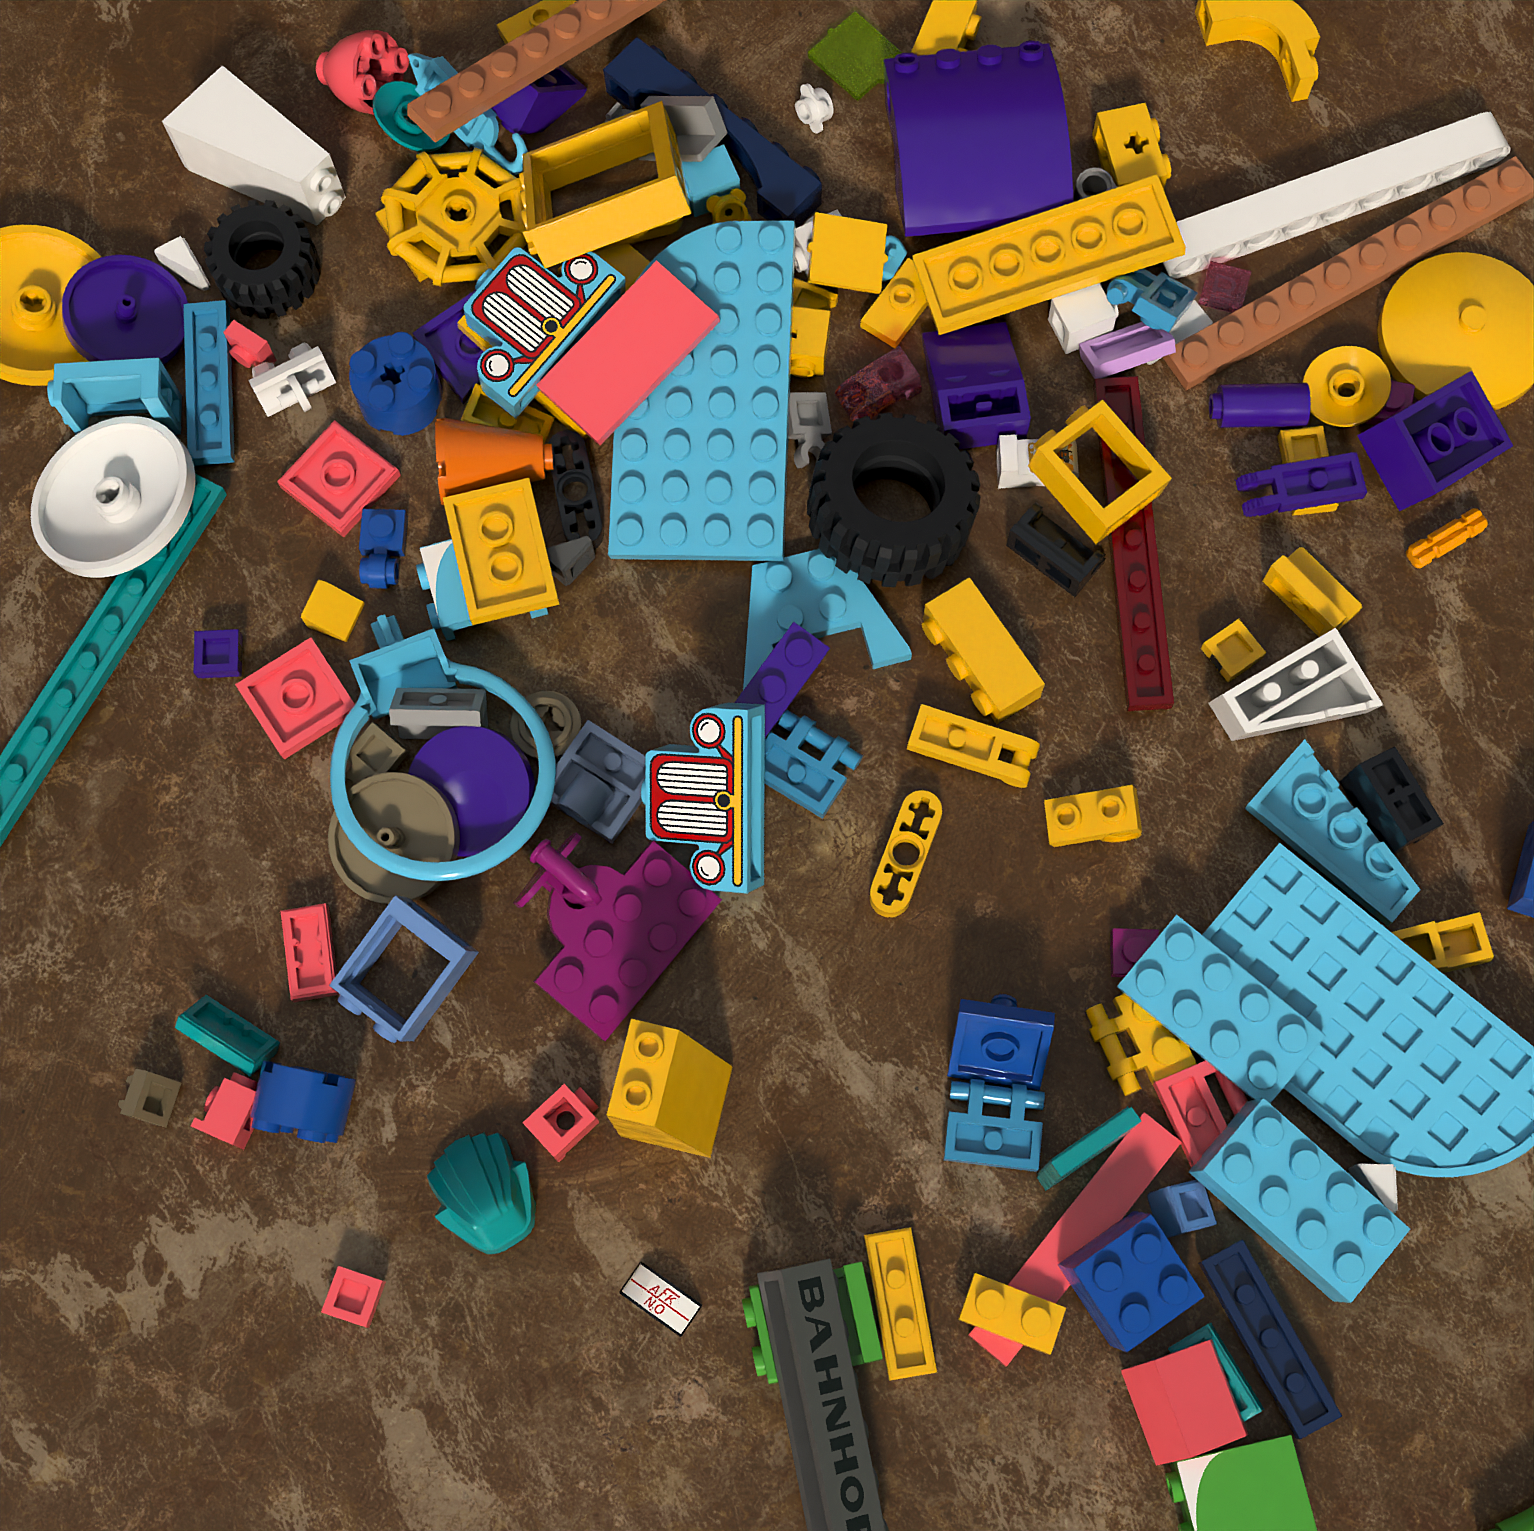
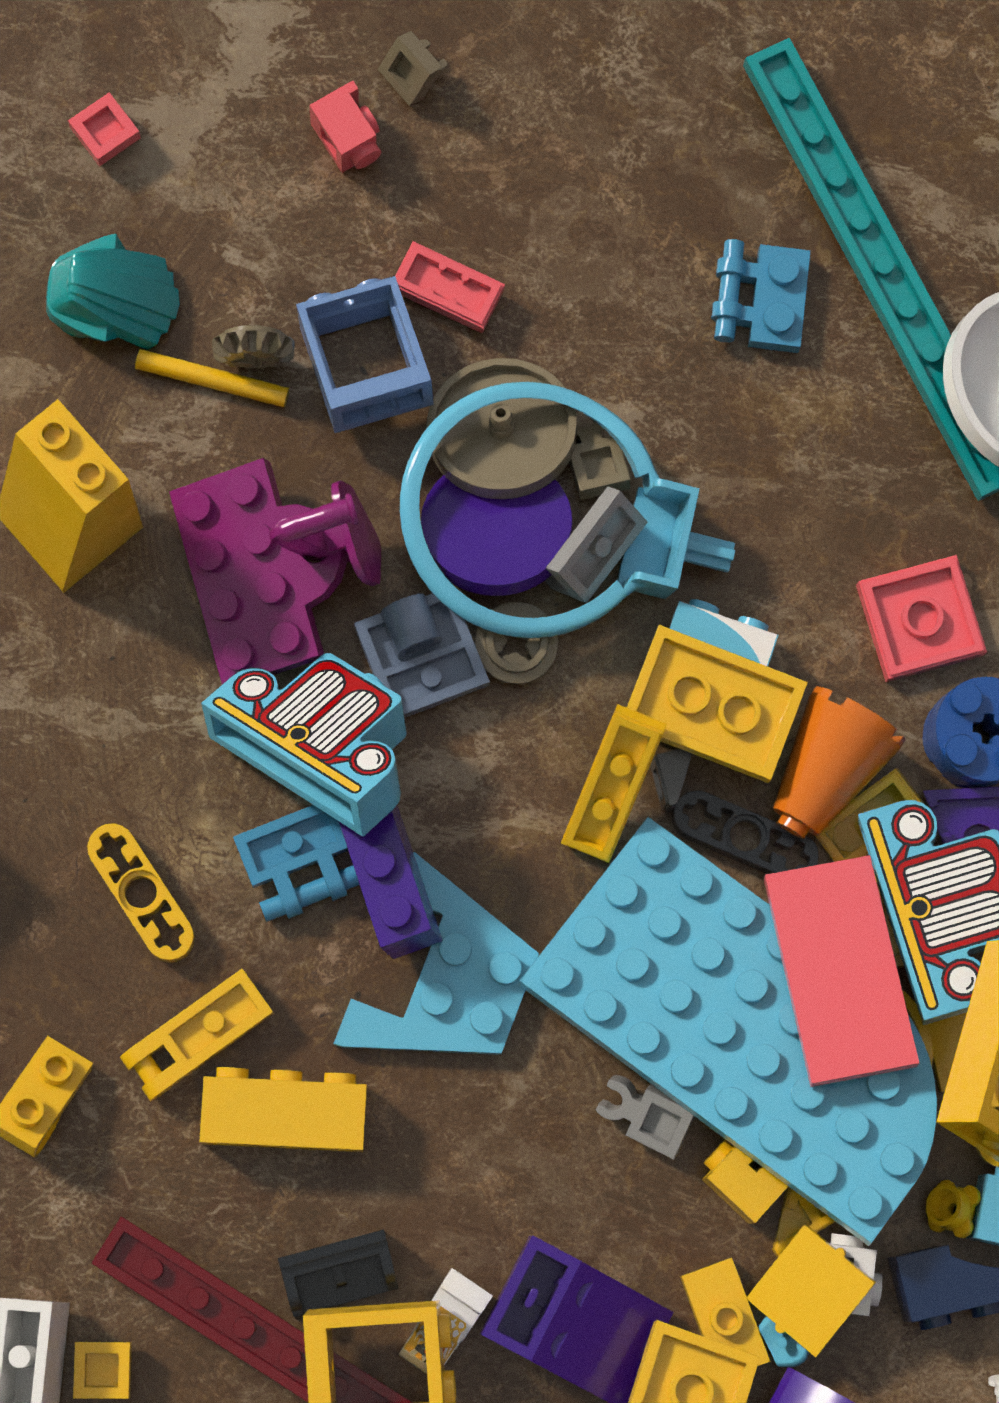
camera: 110 degrees right, 5 degrees up
(161, 721) = (777, 296): none -> dark azure plate
(218, 653) = (808, 387): dark purple plate -> none
(227, 1035) = (420, 168): teal plate -> none
(296, 698) = (710, 431): coral plate -> none
(303, 1100) = (305, 188): blue brick -> none
(331, 611) = (779, 521): yellow slope -> none
(382, 536) = (827, 621): blue plate -> none
(454, 1052) = (253, 347): none -> dark tan gear
(496, 1075) = (212, 378): none -> yellow bar
(544, 1120) = (117, 386): coral brick -> none
(602, 584) = (613, 783): none -> yellow tile
(879, 385) = (642, 1220): clear pink leg -> none
(901, 452) = (545, 1189): black tyre -> none

